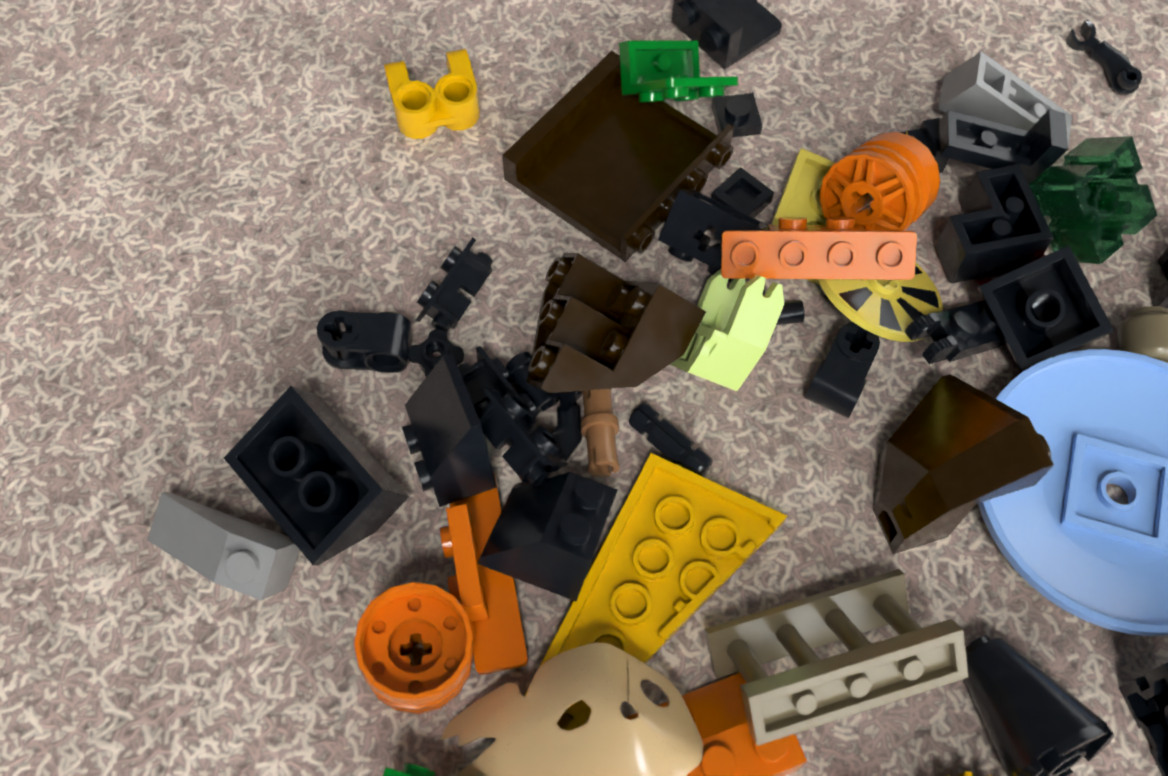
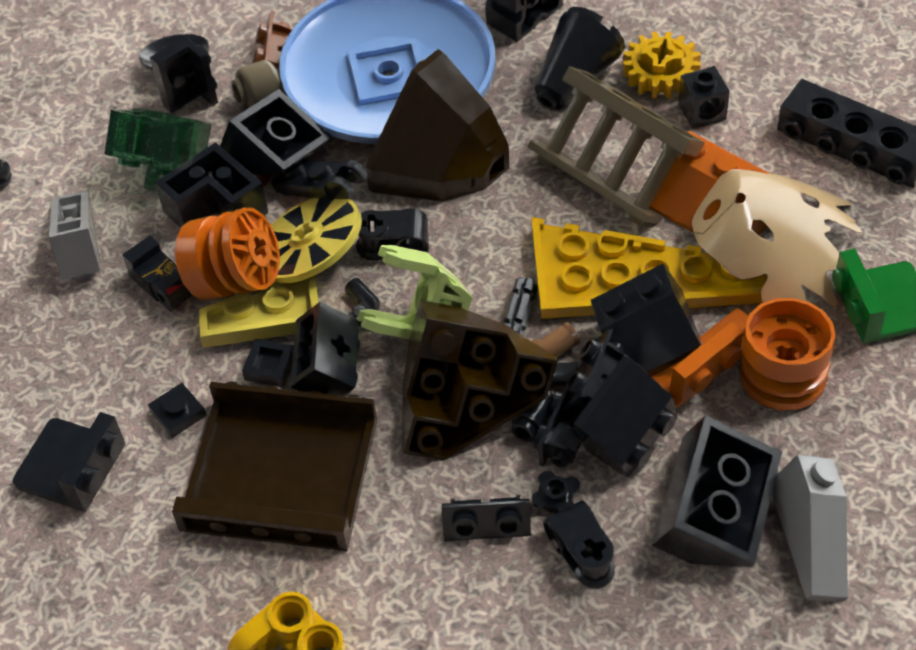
camera: 115 degrees left, 10 degrees down
(667, 72) = (186, 444): green bracket -> none
(818, 251) = (315, 262): orange bracket -> none
(1001, 145) = (135, 196): black bracket -> none

